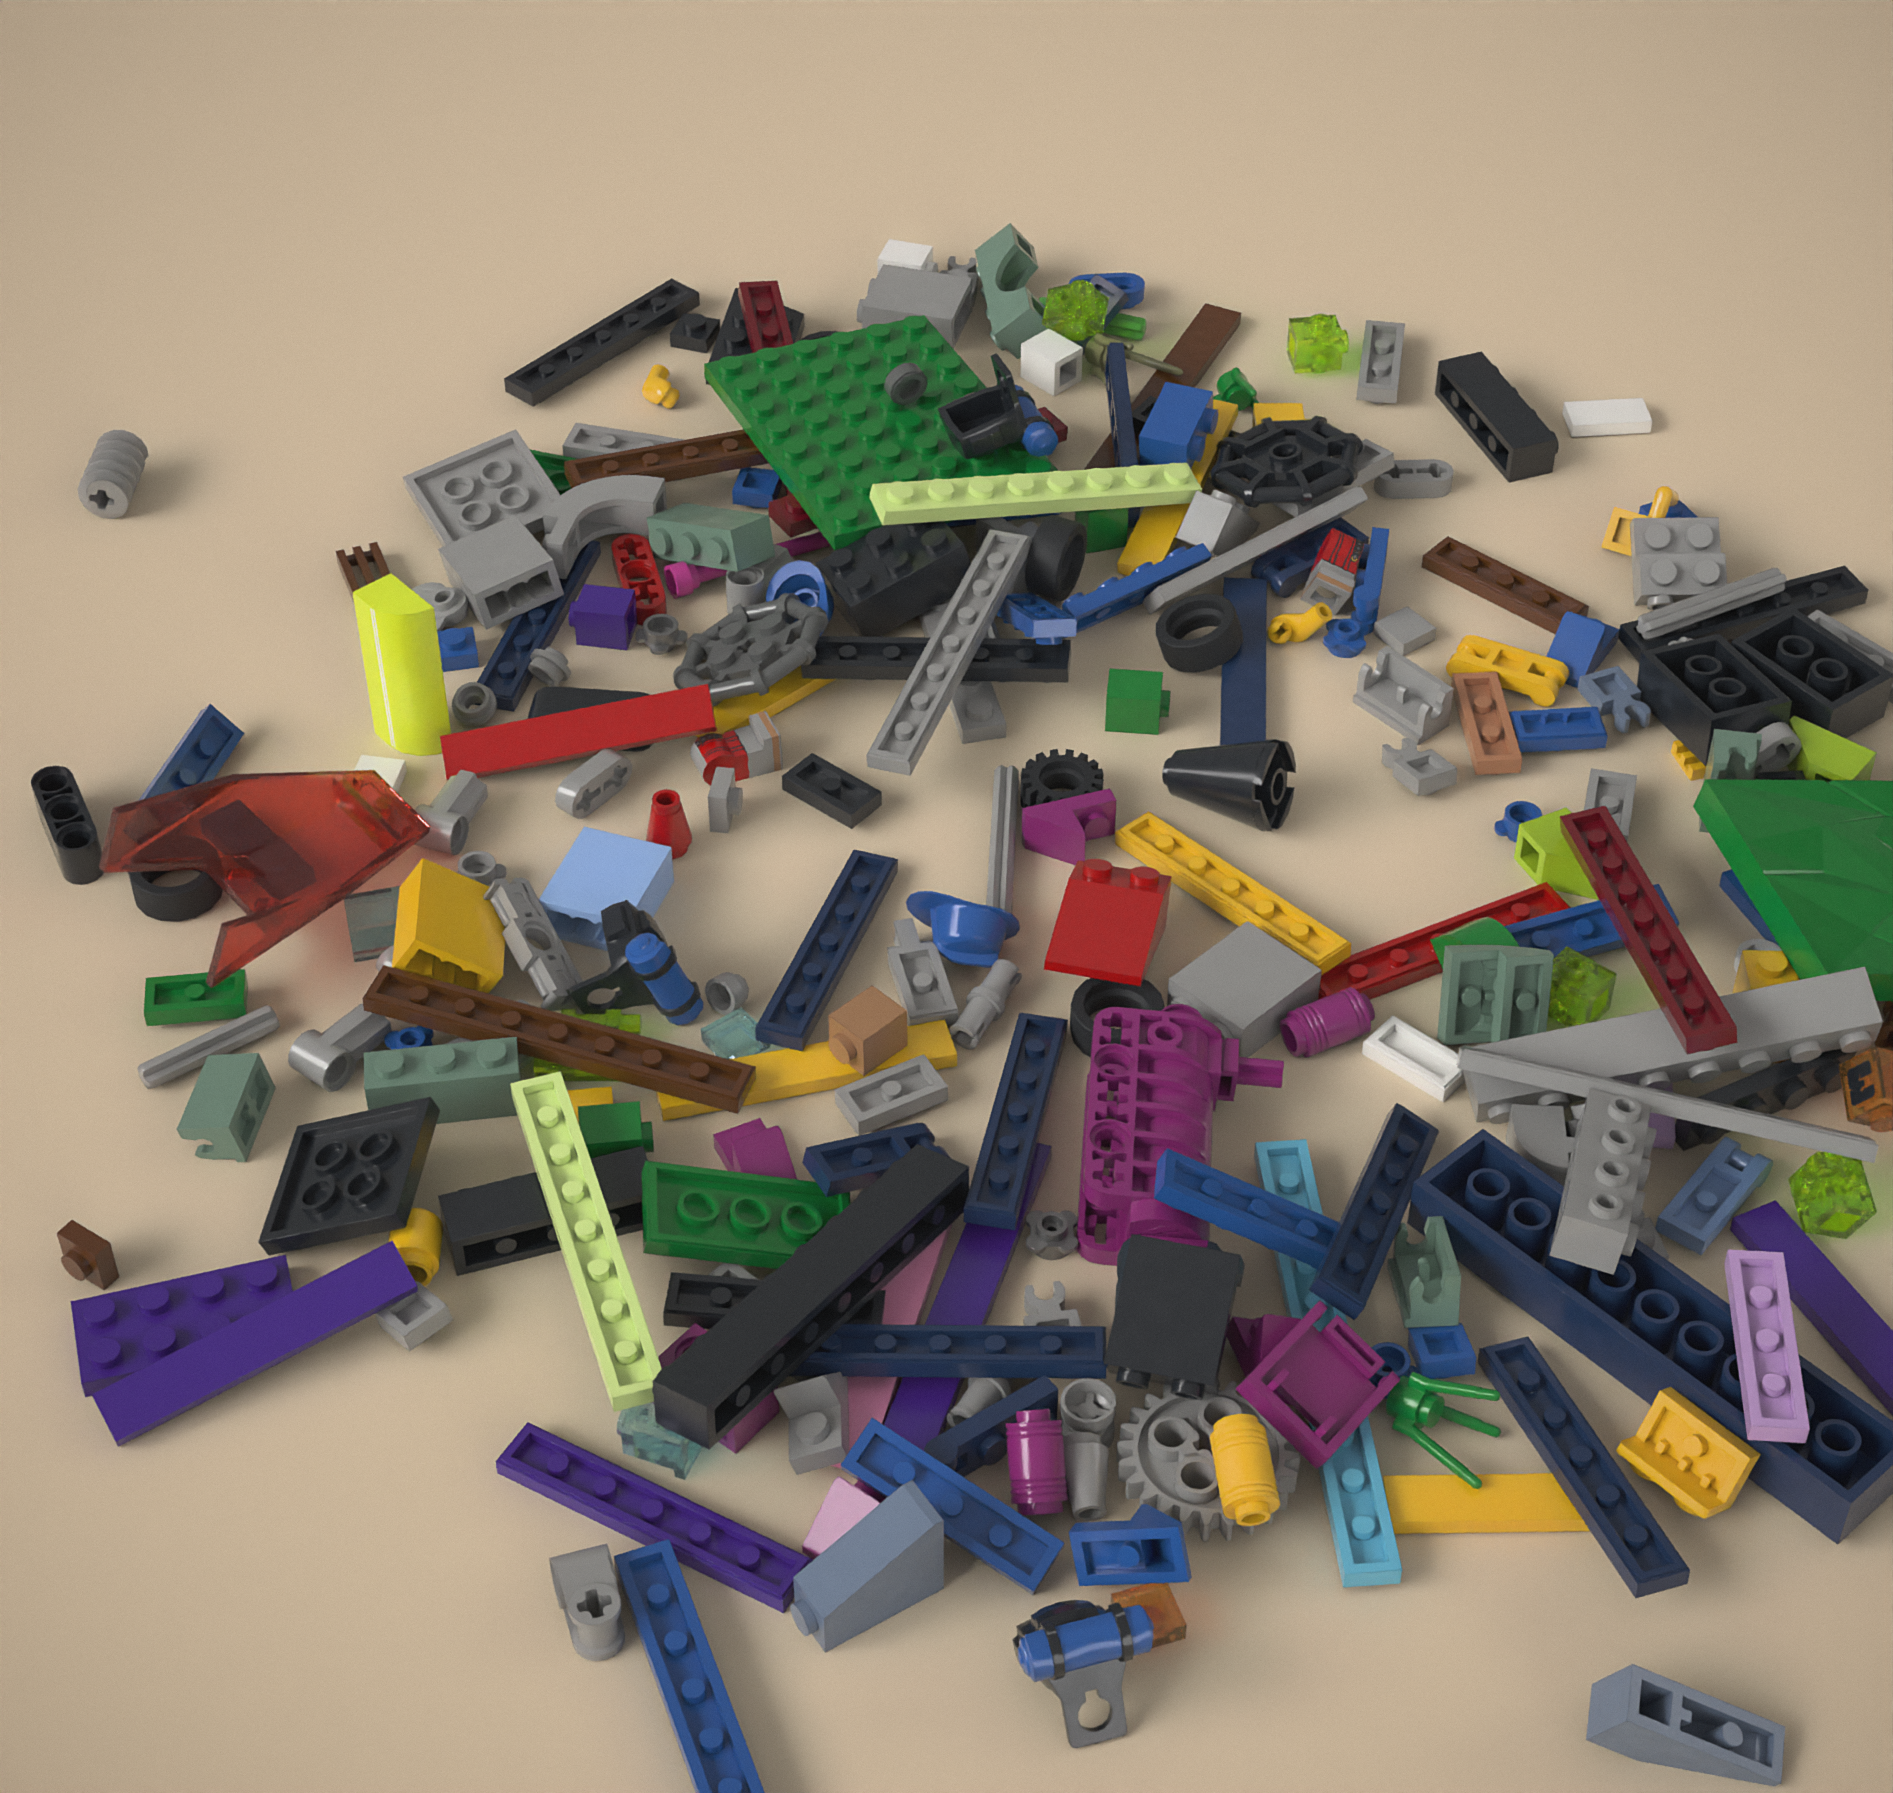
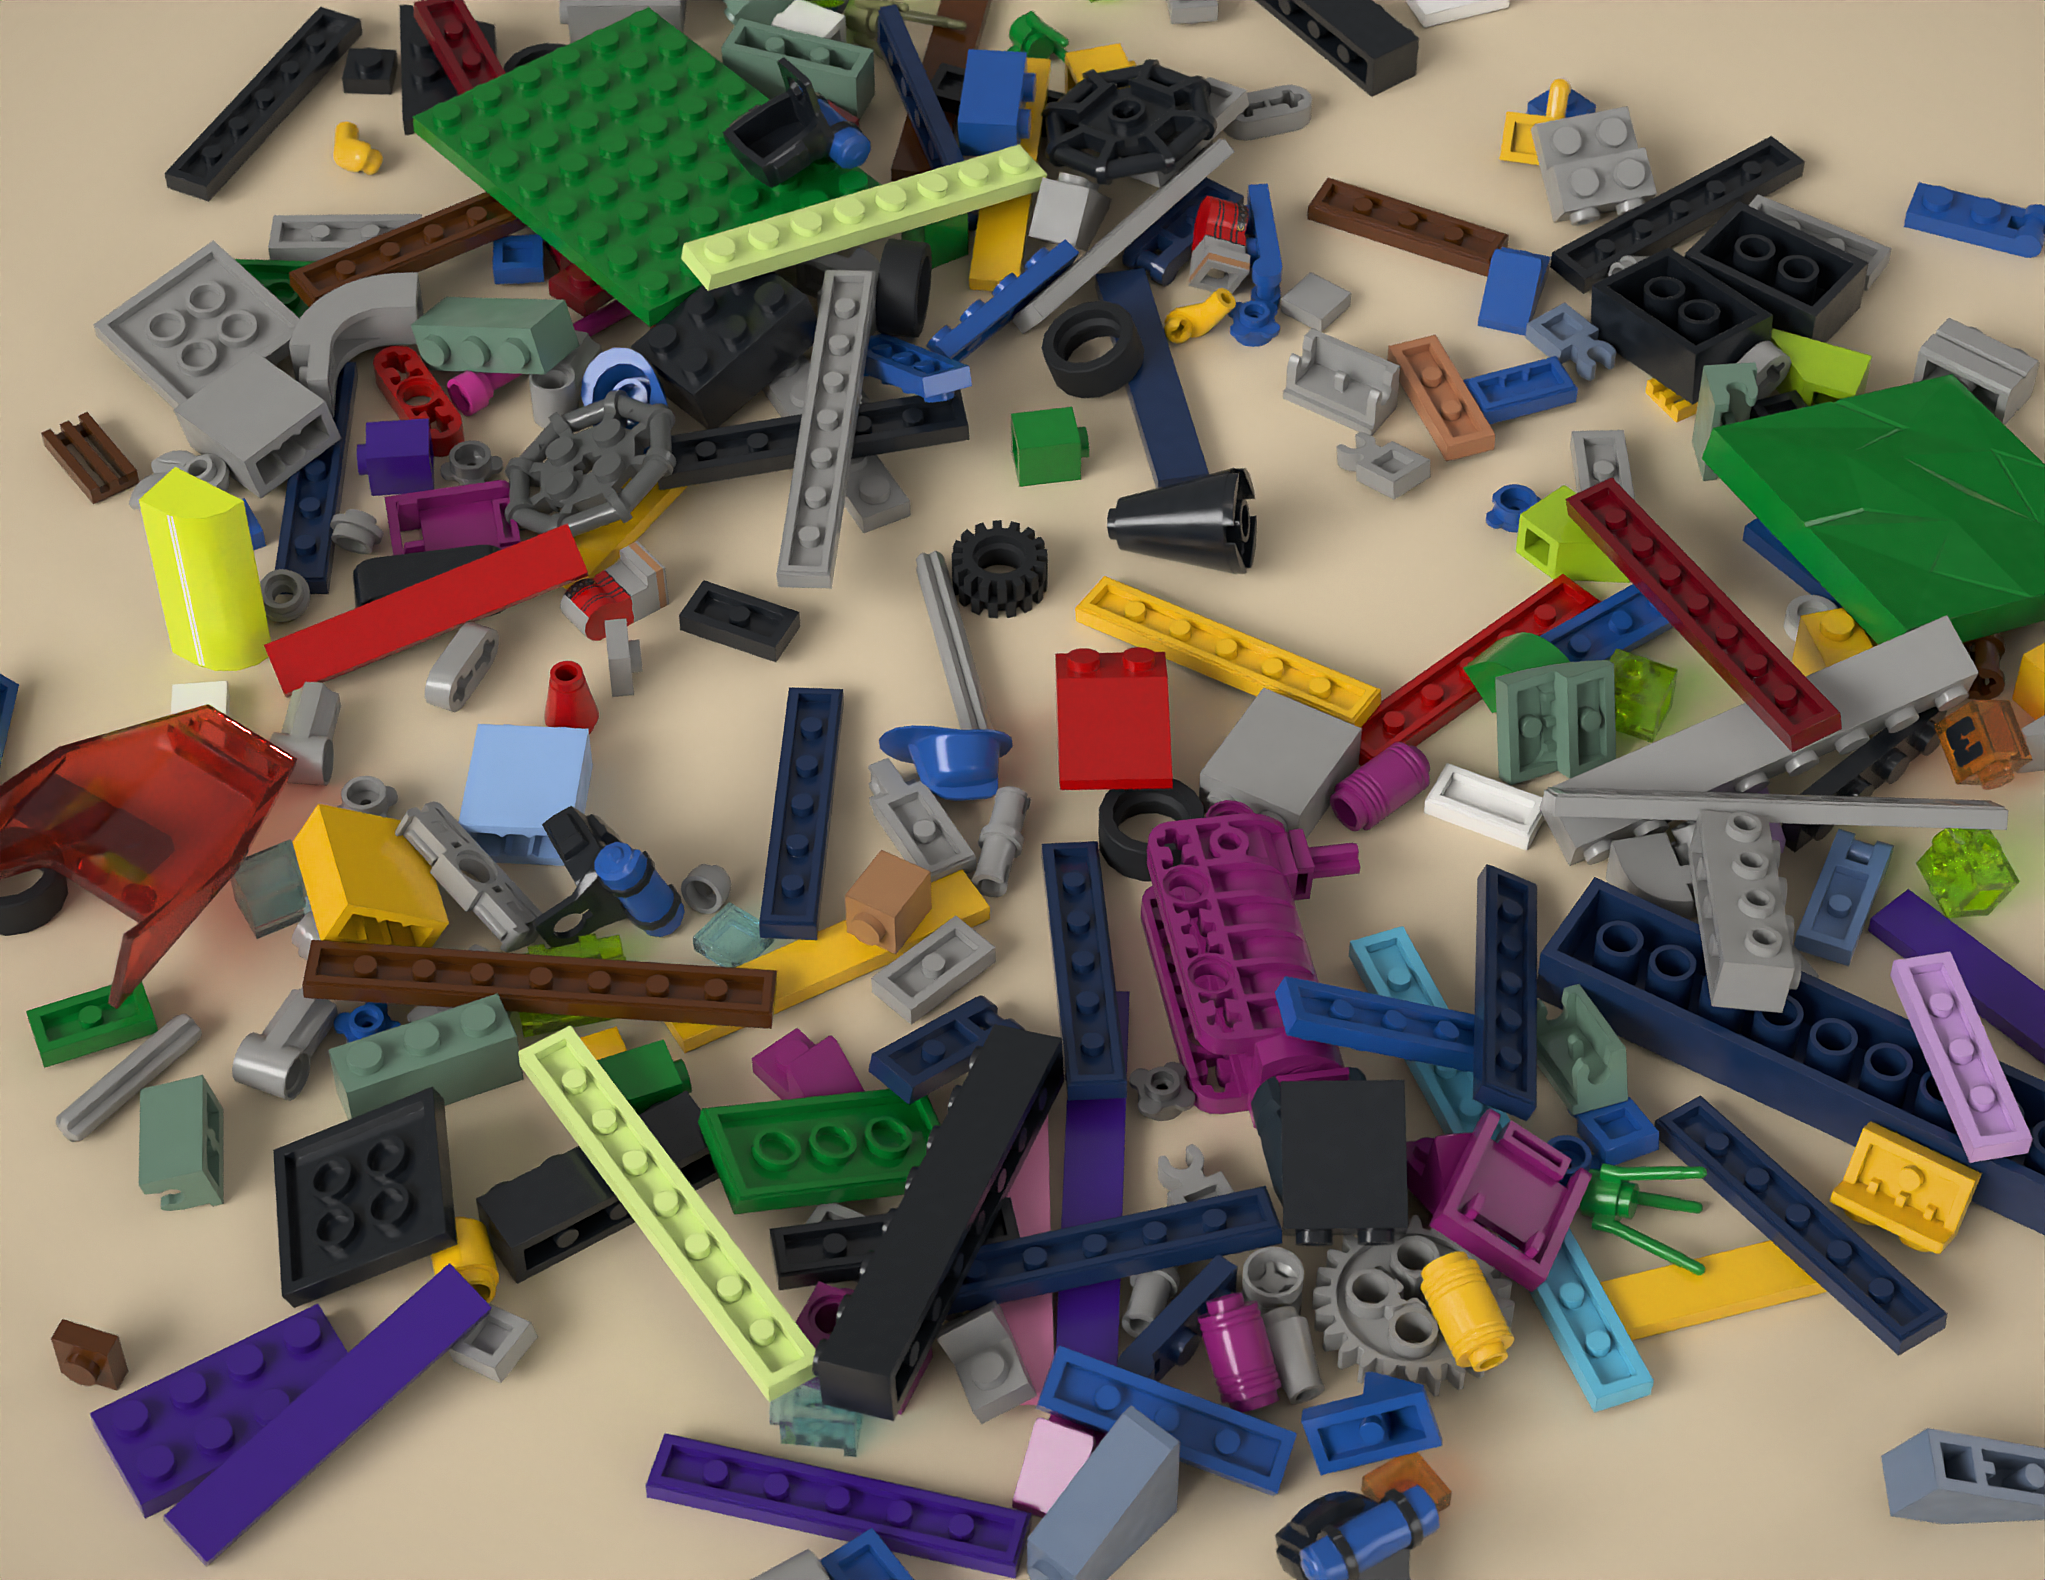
camera: 15 degrees left, 5 degrees up
(629, 668) = (452, 517): none -> magenta container
(905, 383) = (668, 104): dark grey tile -> none
(1050, 382) = (835, 68): none -> sand green brick
(1064, 825) = (1022, 612): magenta slope -> none
(1516, 668) = (1457, 326): yellow plate -> none
(1711, 603) = (1644, 210): light grey axle -> none

